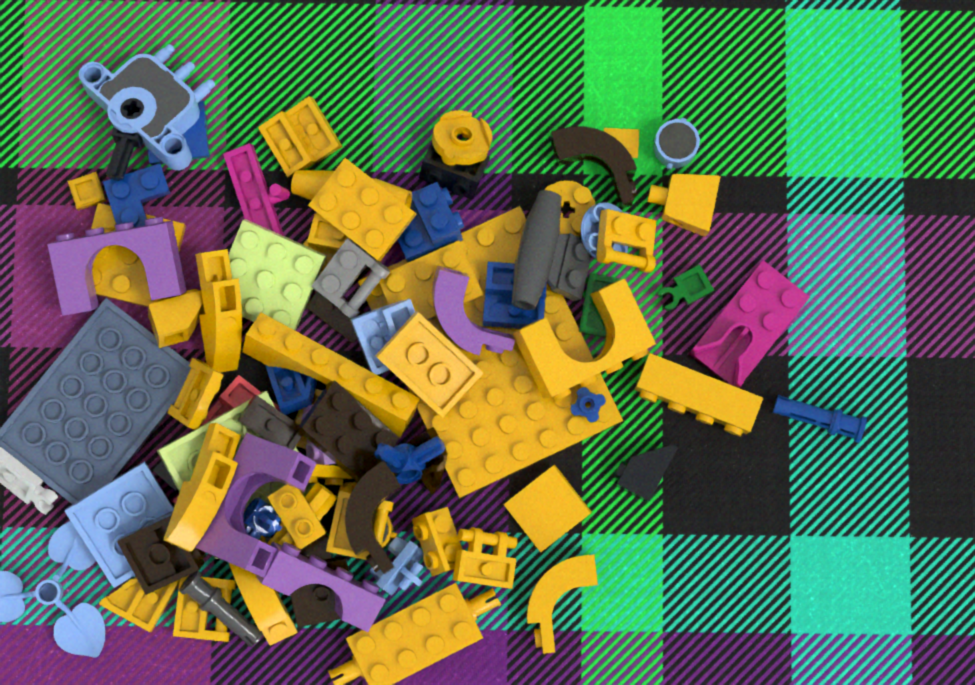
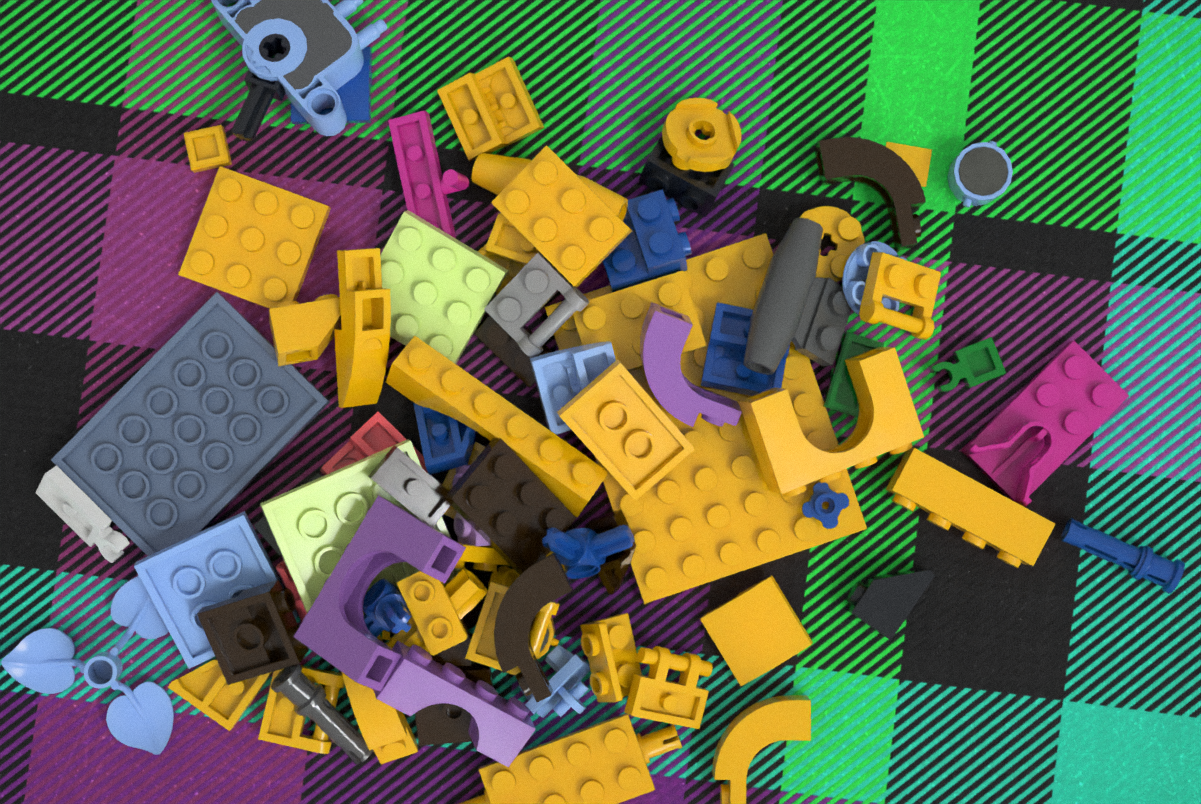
camera: 10 degrees right, 5 degrees up
(74, 259) = (282, 229): medium lavender arch -> none
(133, 190) = (259, 161): blue plate -> none
(196, 394) = (319, 434): yellow plate -> none
(205, 491) = (318, 565): yellow slope -> none
(687, 201) = (986, 252): yellow torso -> none

